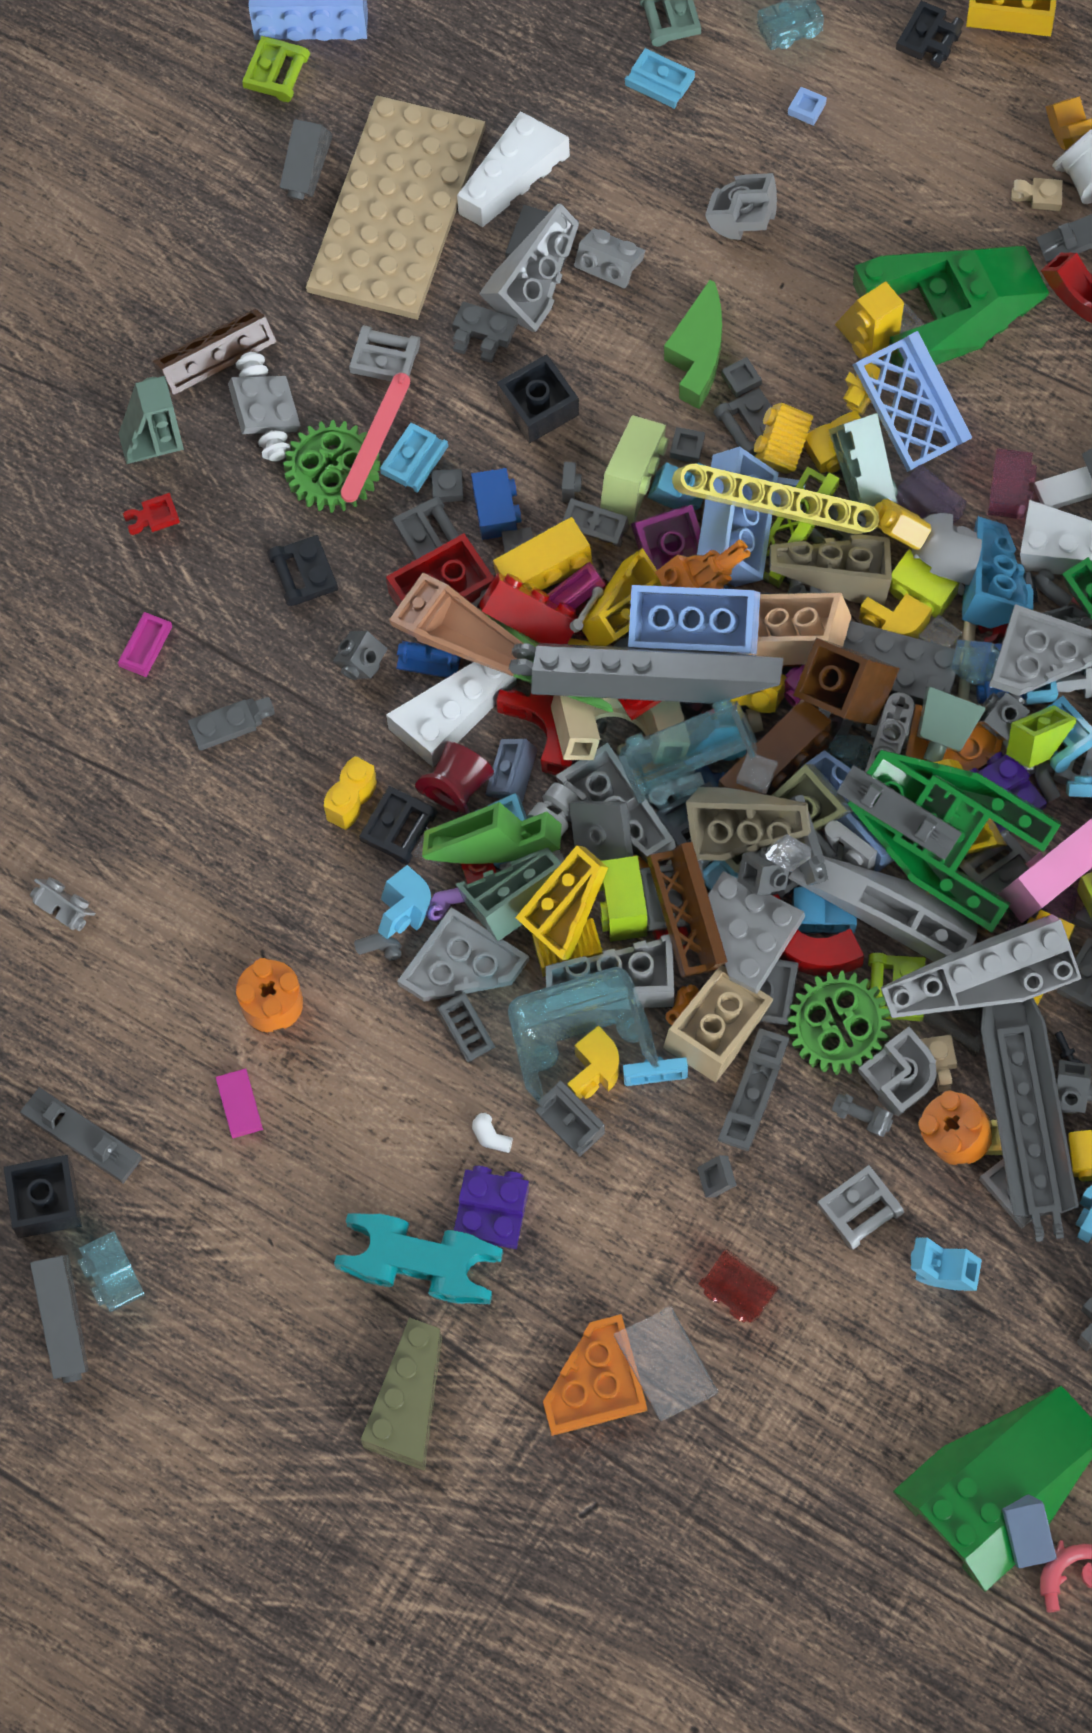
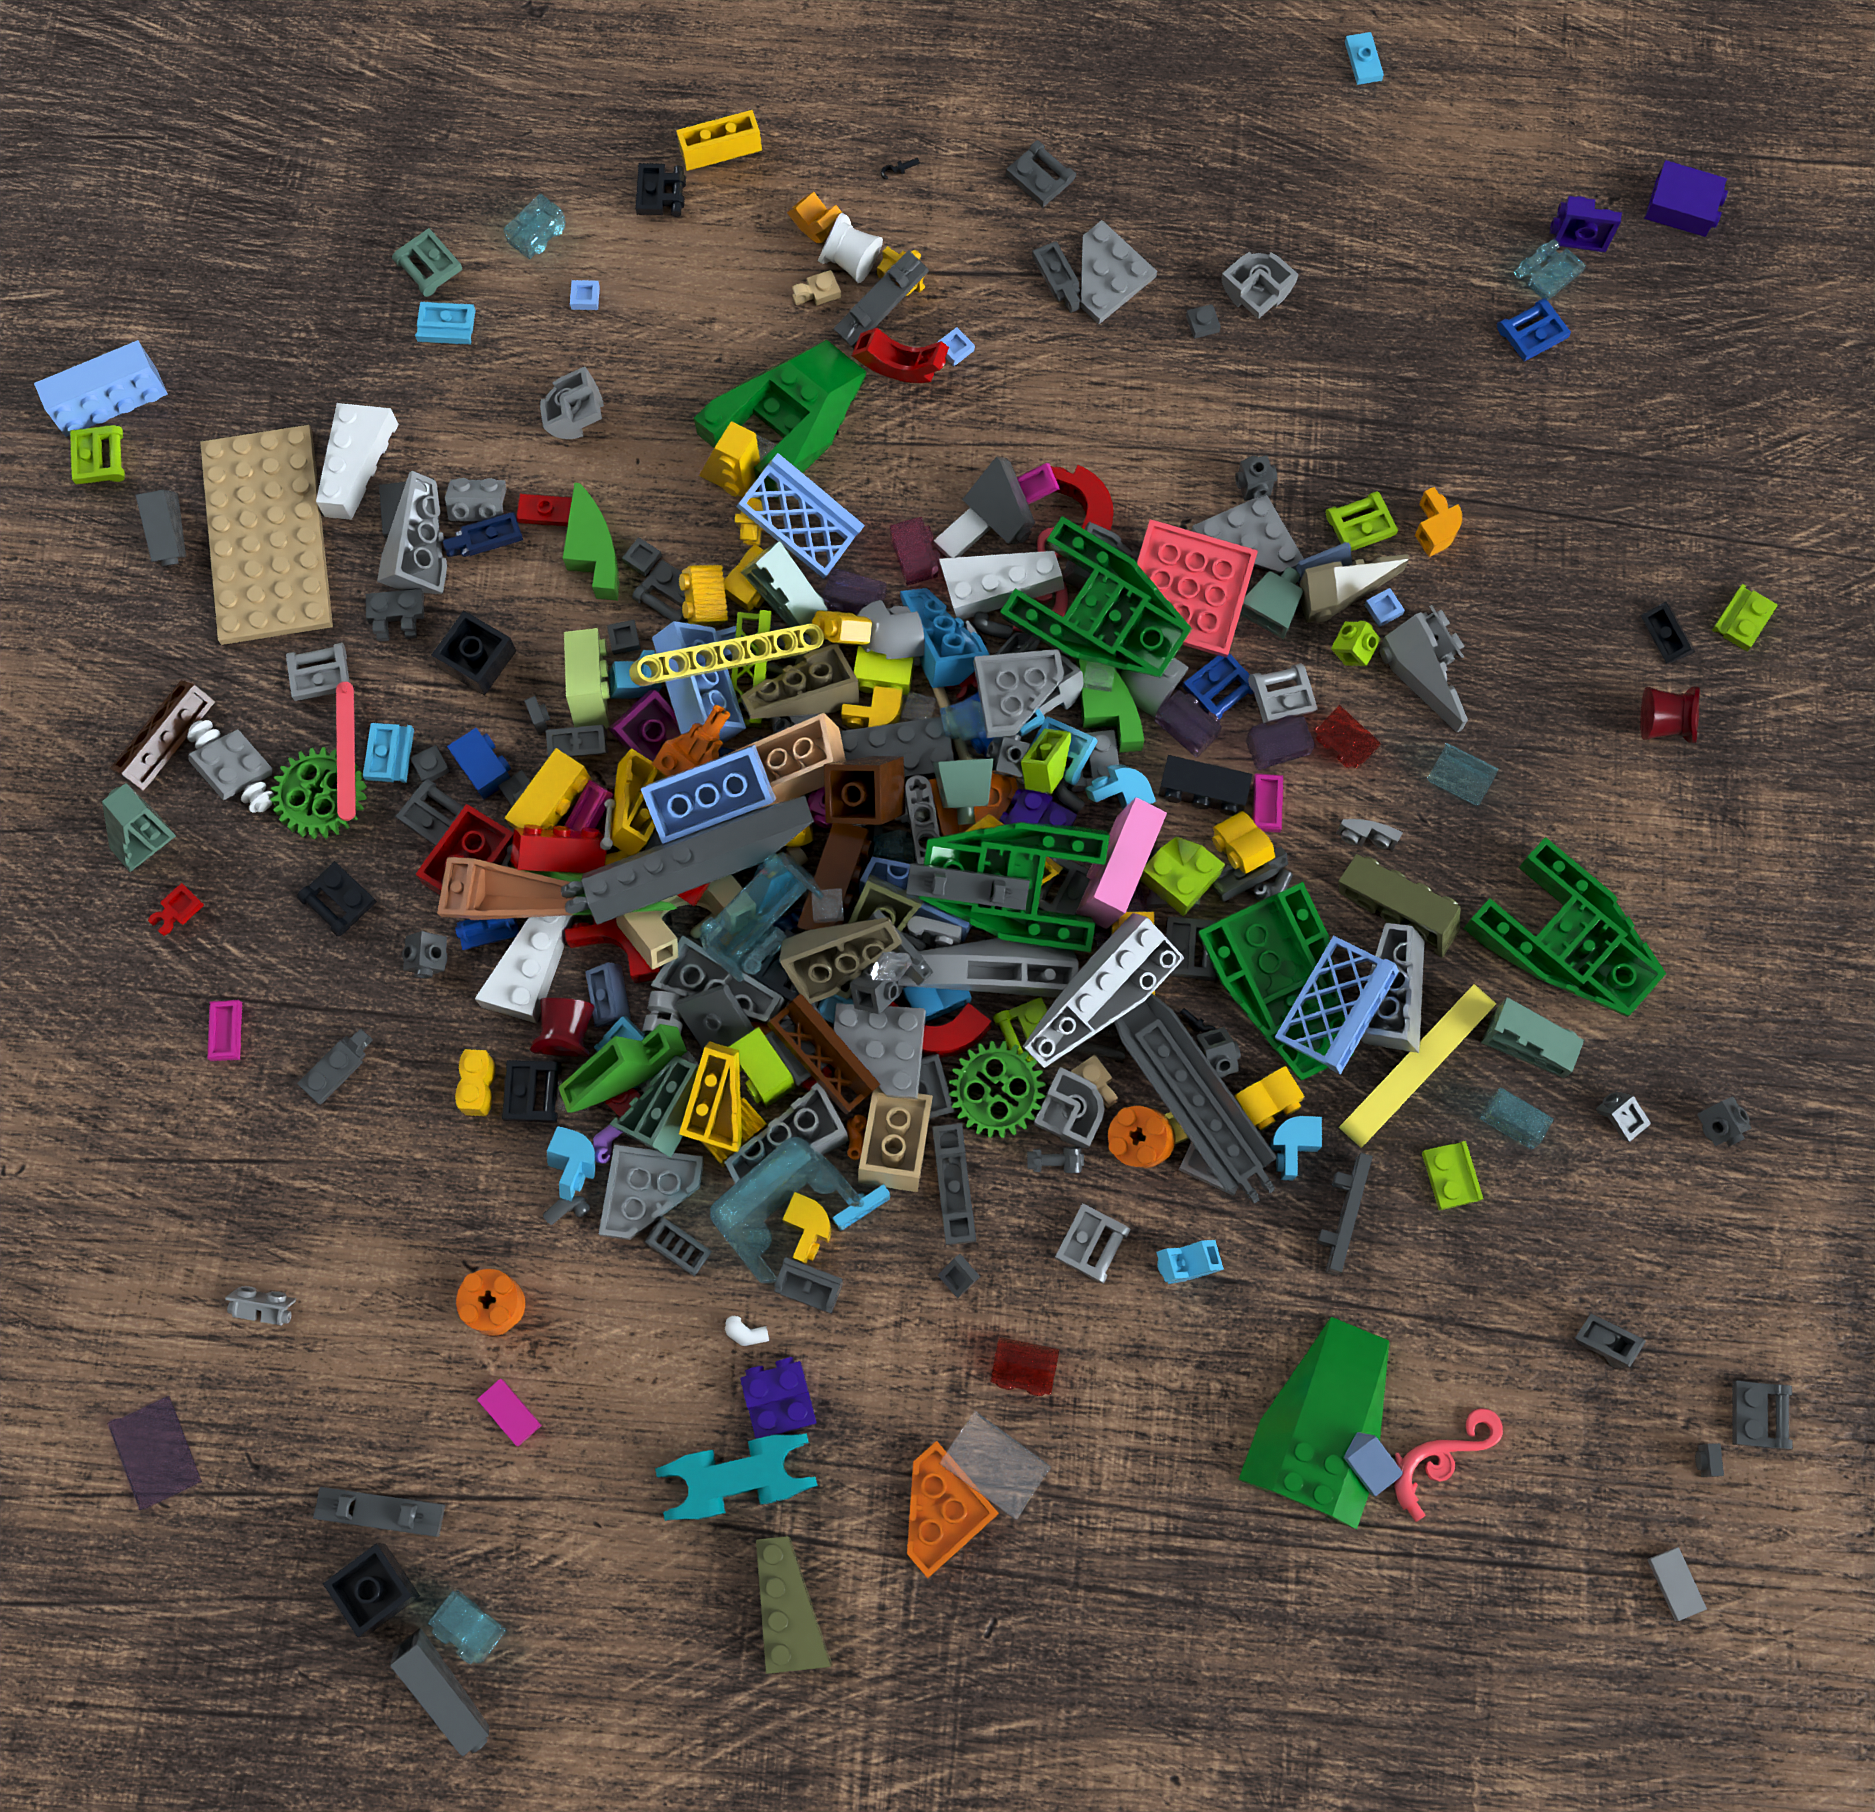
camera: 30 degrees left, 5 degrees up
(600, 294) = (484, 536): none -> dark blue hinge
(668, 293) = (543, 510): none -> red plate

